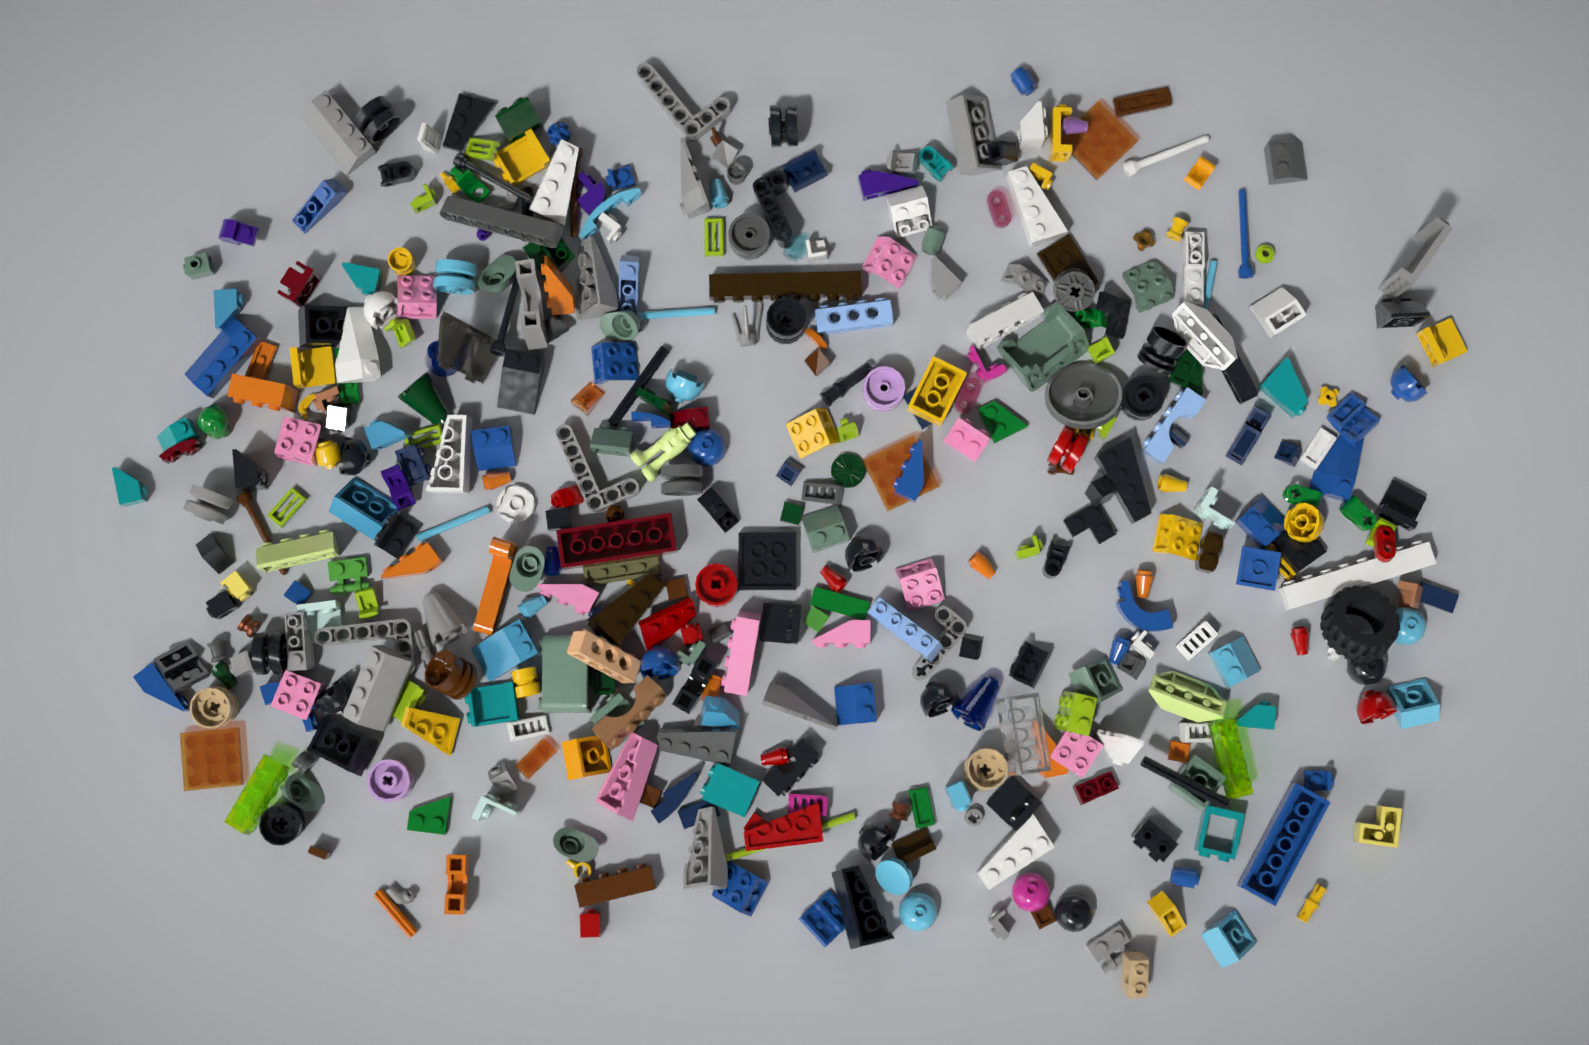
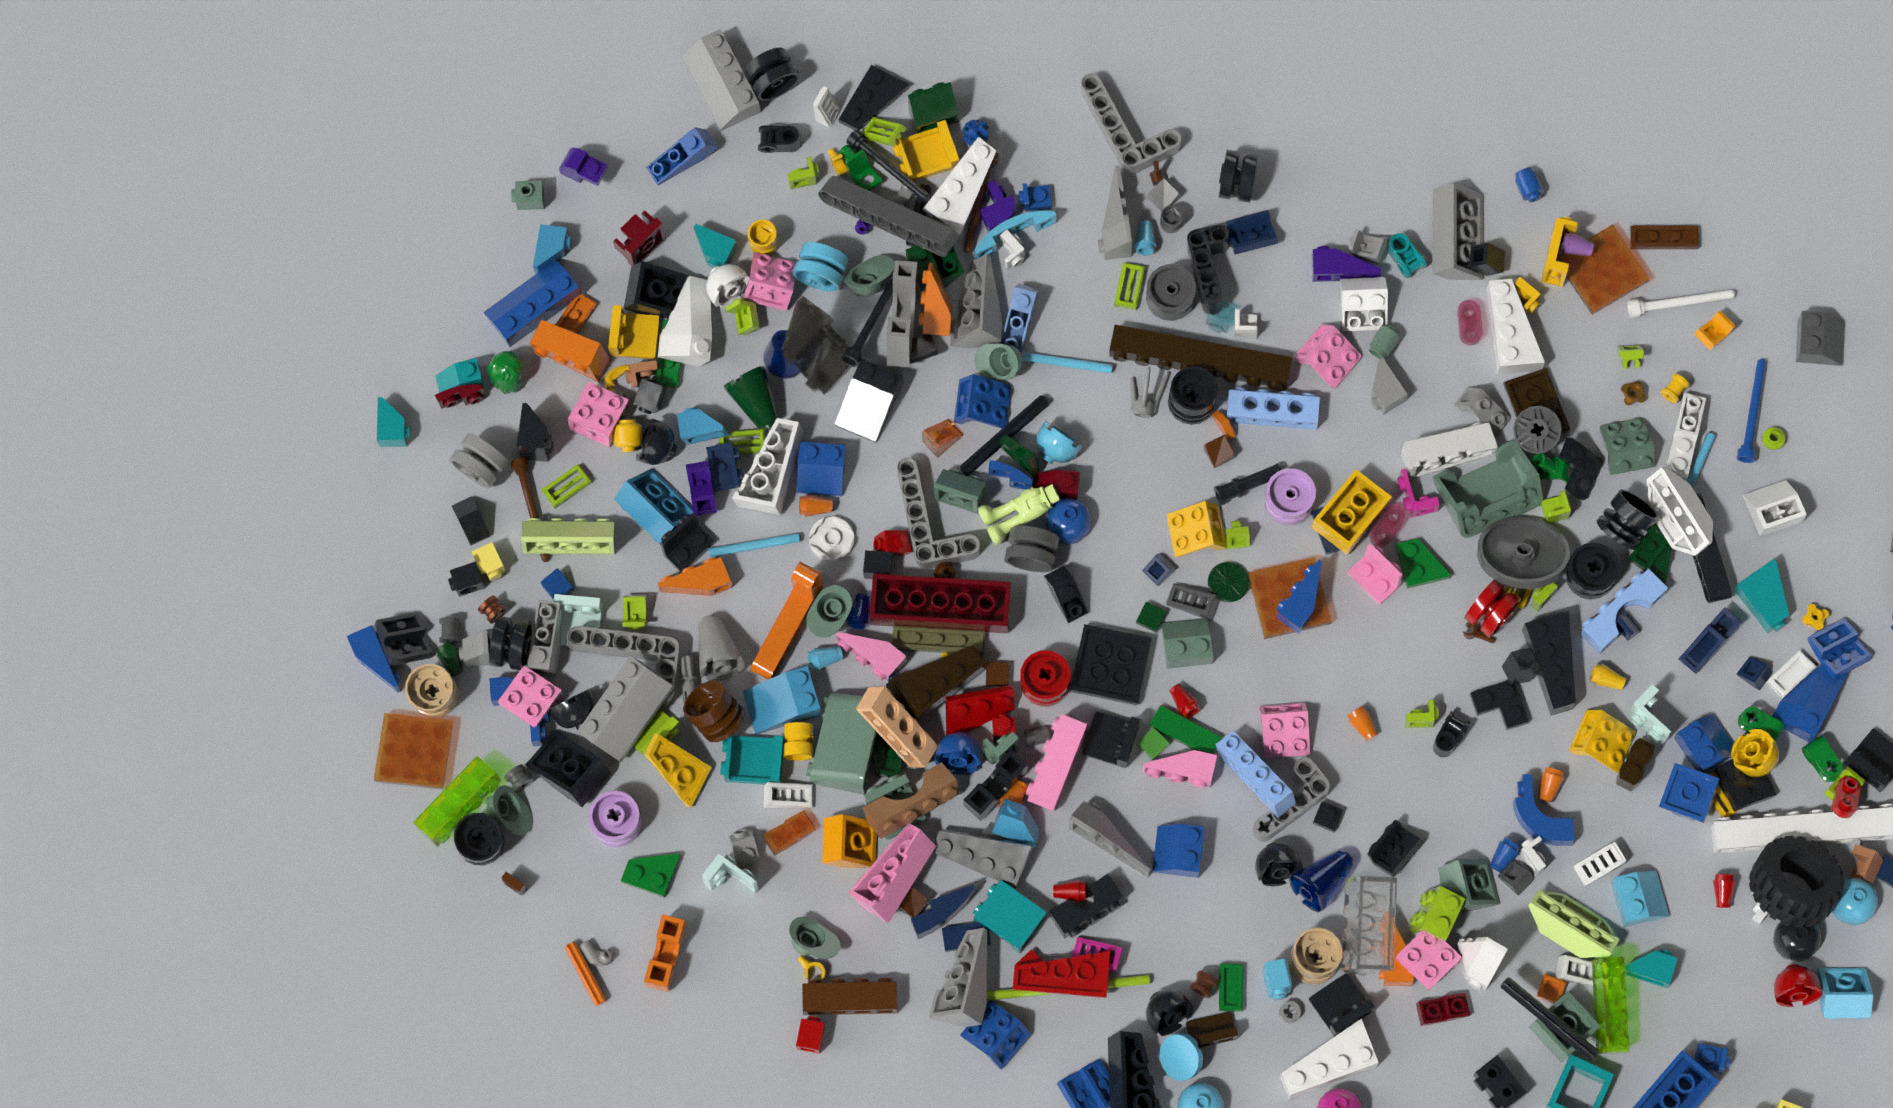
camera: 15 degrees right, 10 degrees down
(348, 569) = (619, 571): bright green plate -> none
(863, 552) = (1225, 678): black cylinder -> none
(1031, 129) = (1527, 238): white slope -> none
(1135, 206) = (1631, 352): none -> lime tile

